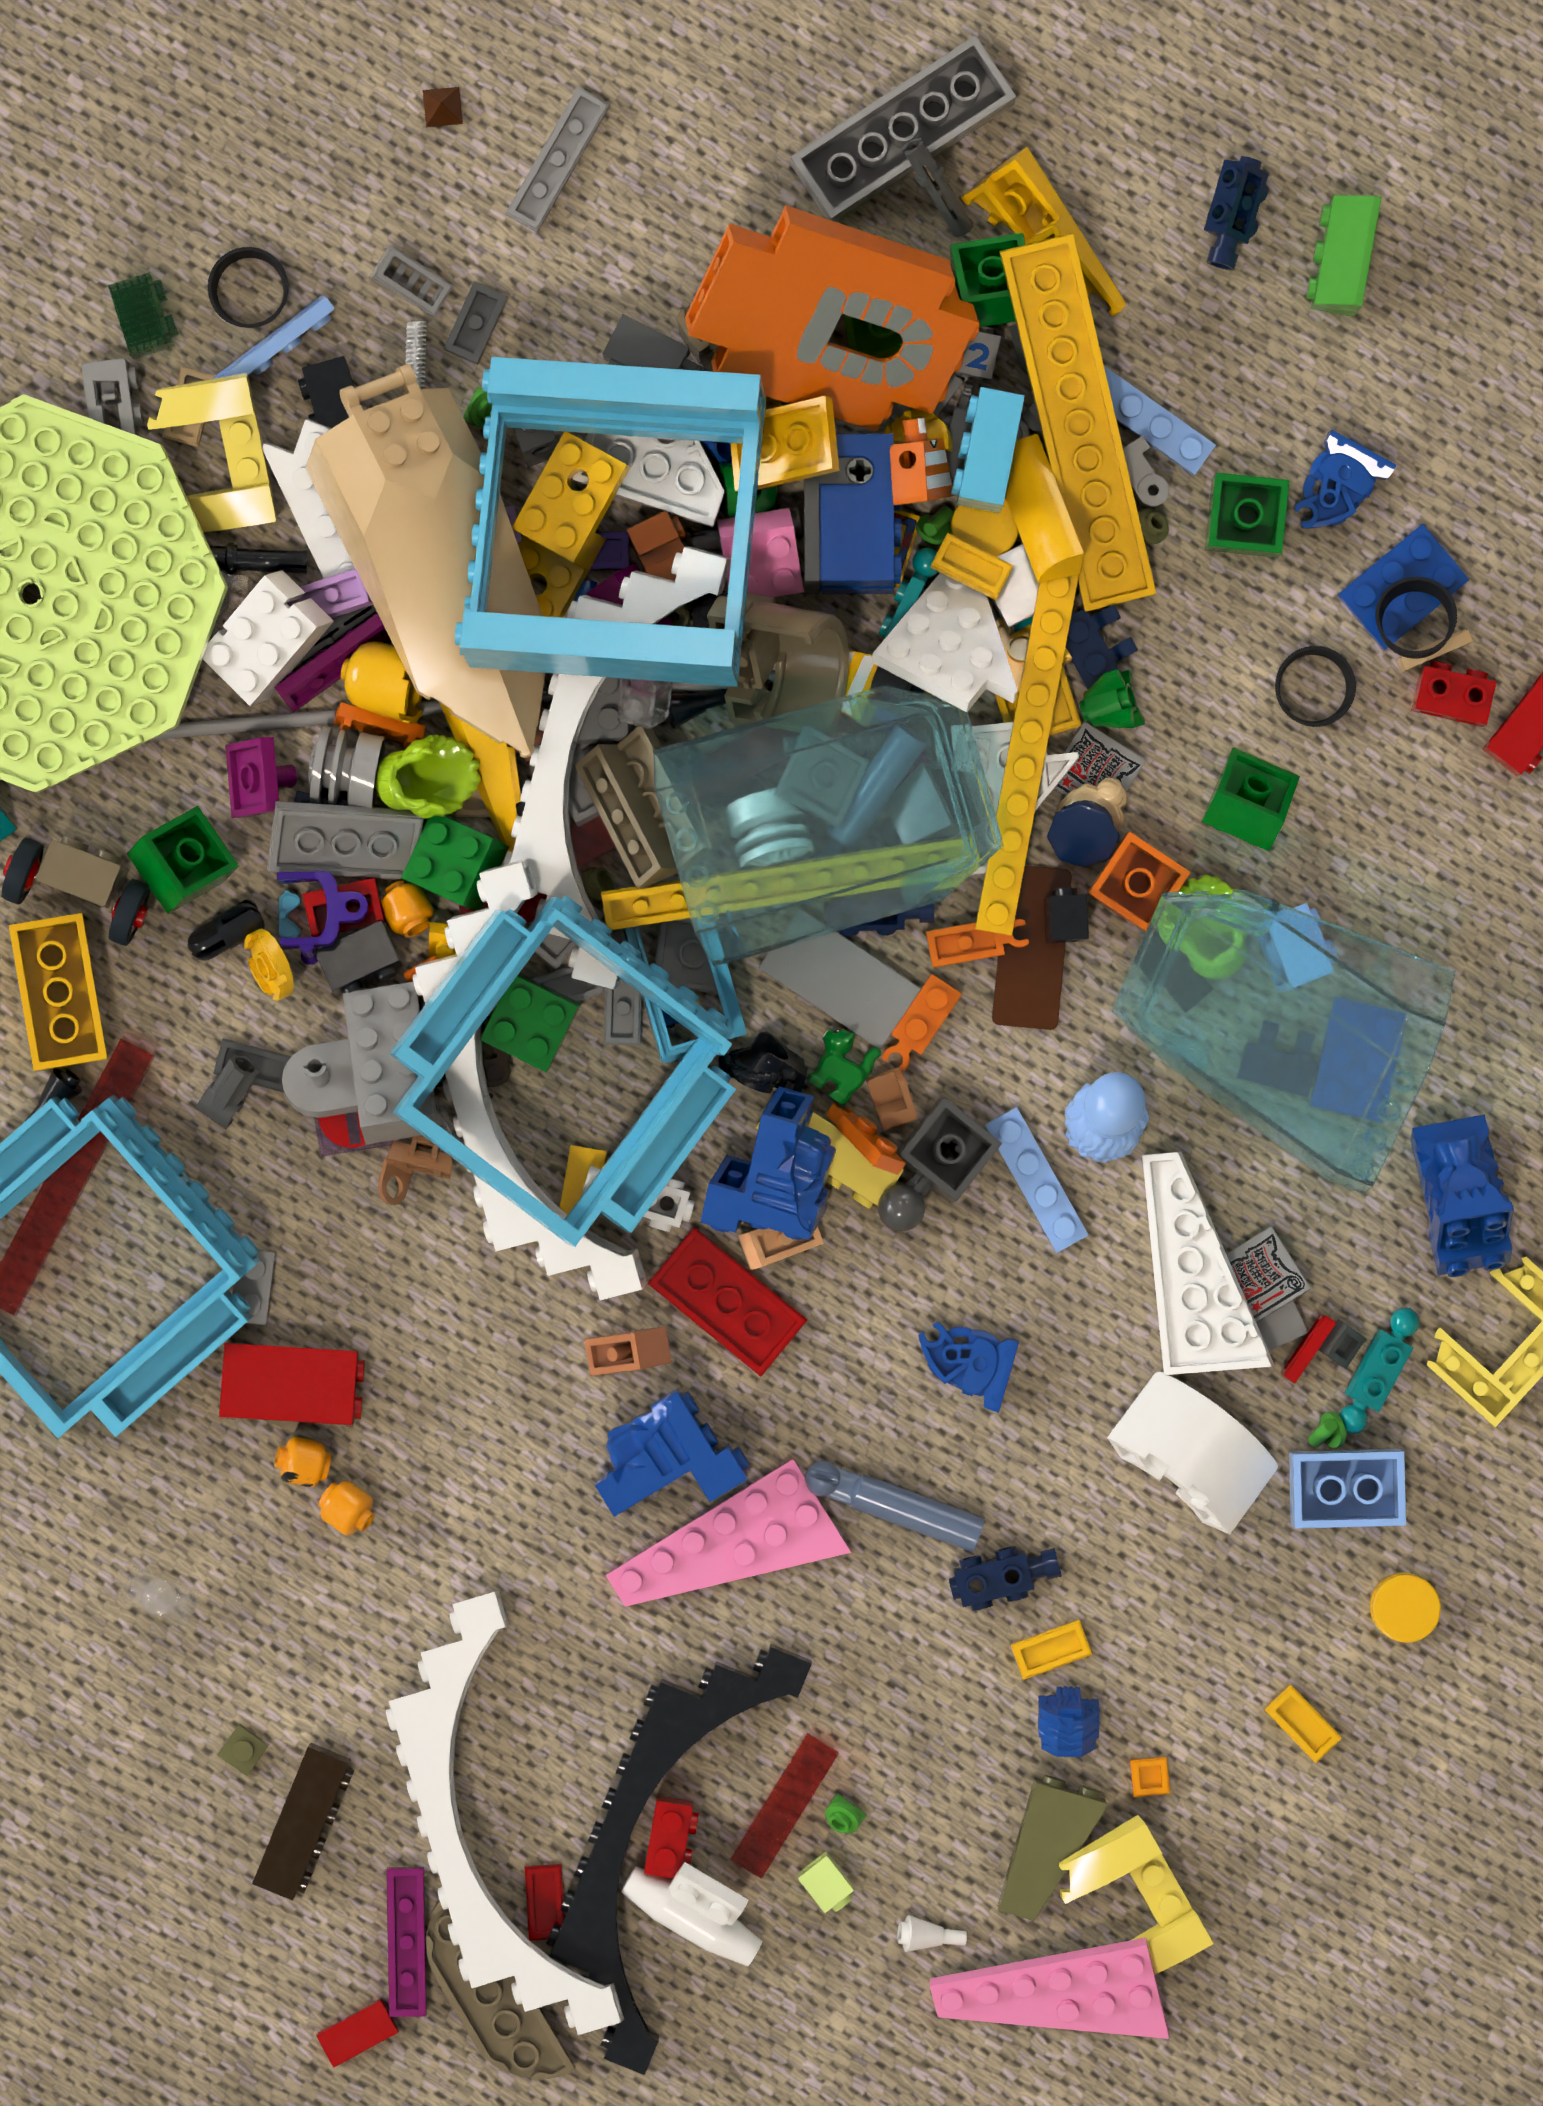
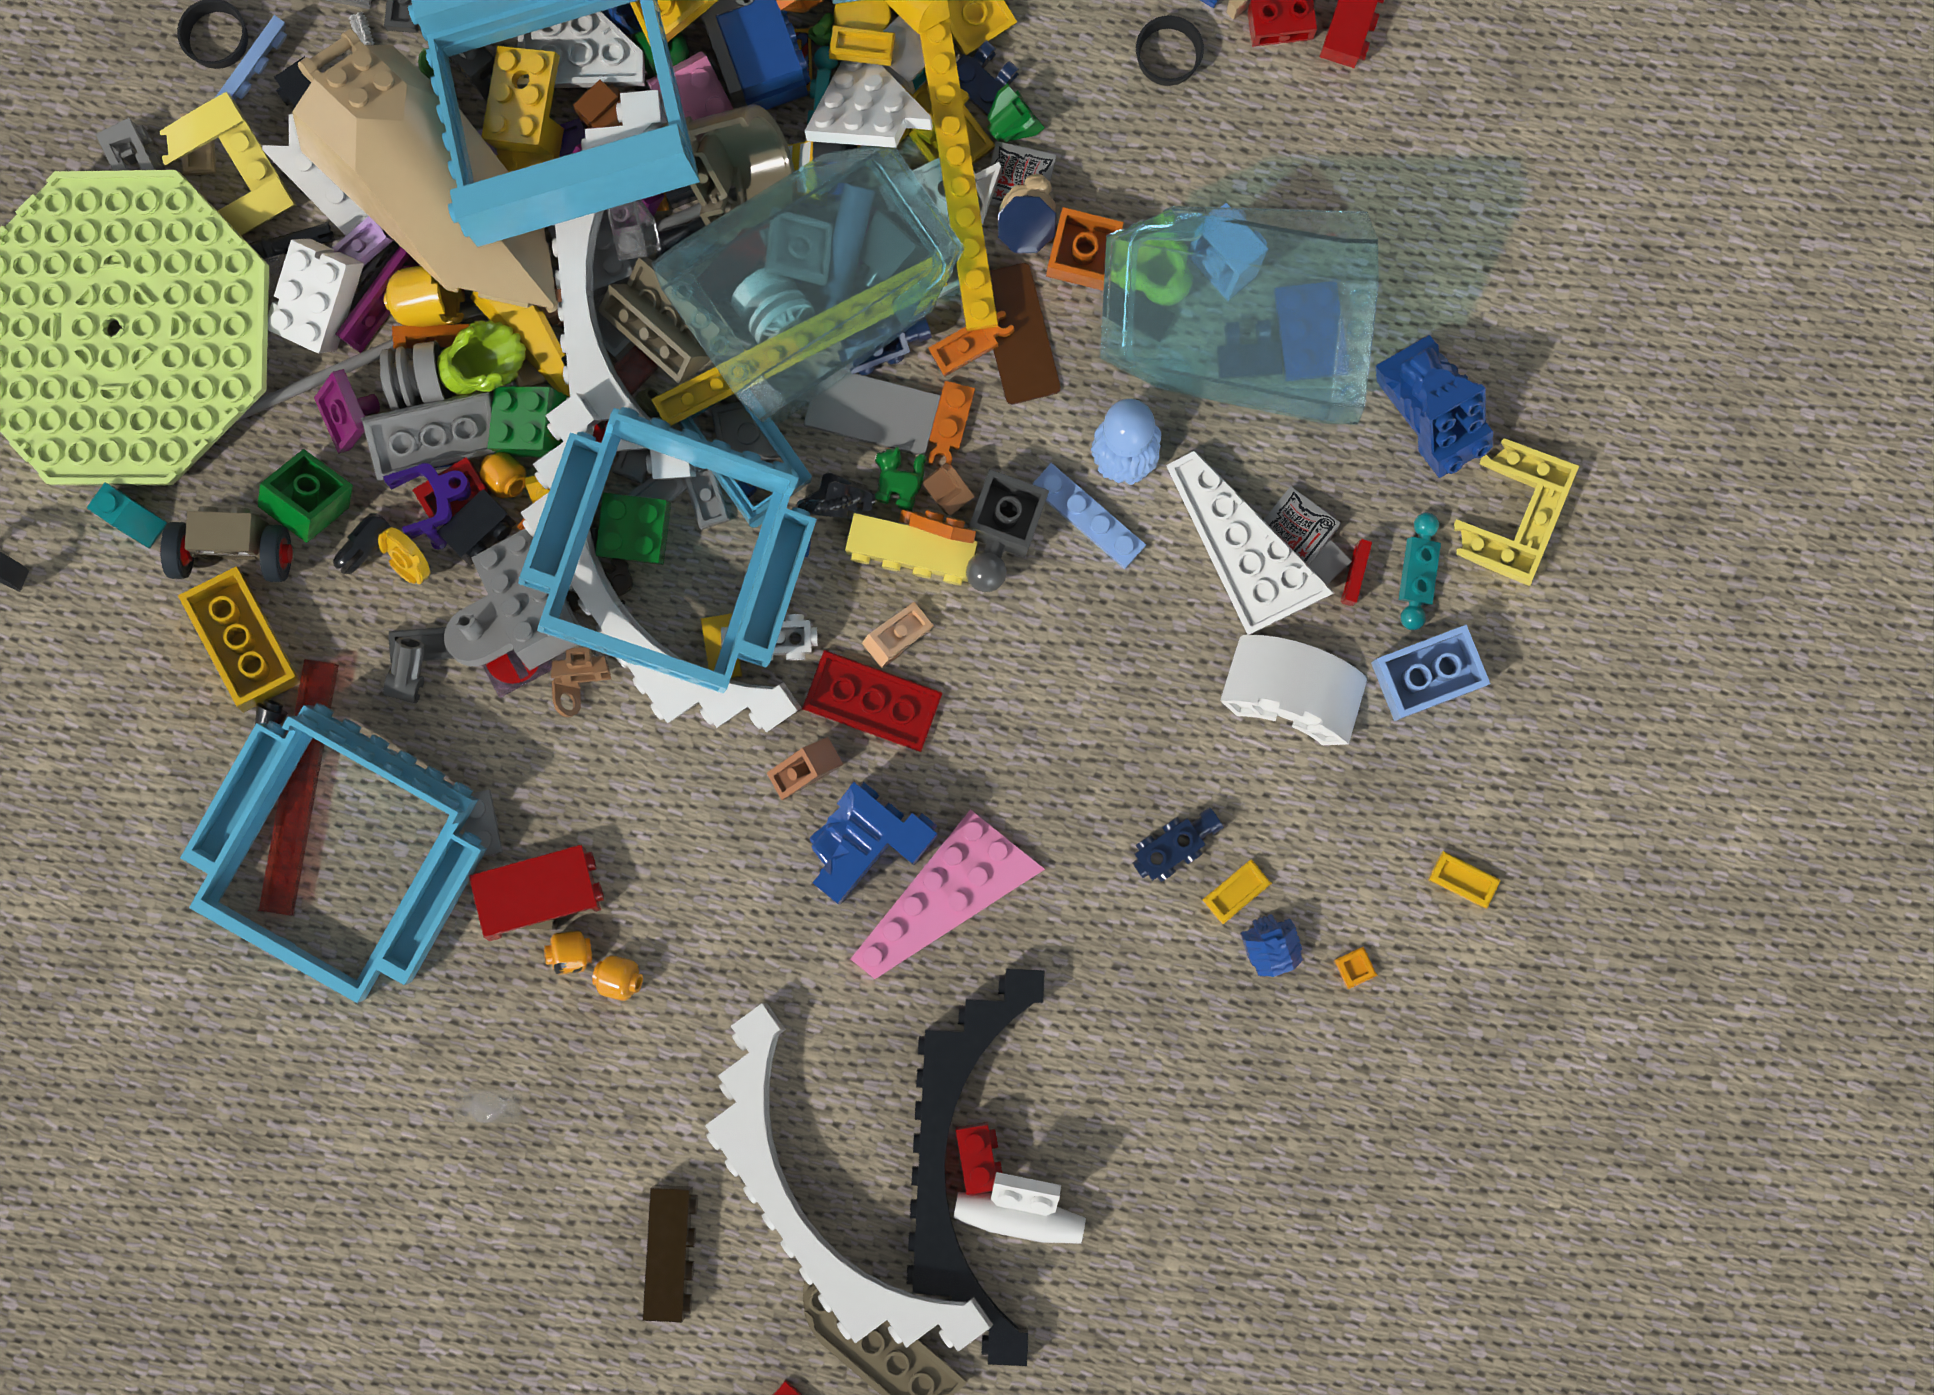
camera: 15 degrees left, 5 degrees down
(142, 315) = (135, 84): clear green brick -> none
(243, 1749) = (600, 1210): olive plate -> none
(287, 903) = (406, 506): medium azure piece -> none
(406, 1941) = (790, 1324): magenta plate -> none
(543, 1899) = (892, 1247): red tile -> none
(783, 1180) = (880, 574): blue brick -> none
(784, 1805) = (1063, 1098): clear red plate -> none
(826, 1883) = (1121, 1150): yellowish green brick -> none
(843, 1815) = (1115, 1089): bright green plate -> none
(895, 1505) = (1067, 817): sand blue piece -> none
(920, 1934) = (1215, 1165): white cone -> none
(973, 1366) = (1091, 682): blue piece -> none
(1051, 1830) = (1291, 1052): olive slope -> none
(1066, 916) = (1036, 293): black brick -> none
(1079, 1990) = (1362, 1166): bright pink wing -> none
(1134, 1851) = (1368, 1032): light yellow wedge -> none
(1251, 799) = (1150, 156): green slope -> none
(1330, 1430) = (1399, 633): bright green plate -> none
(1342, 1344) = (1382, 559): dark grey plate -> none
(1405, 1607) = (1512, 755): yellow head -> none

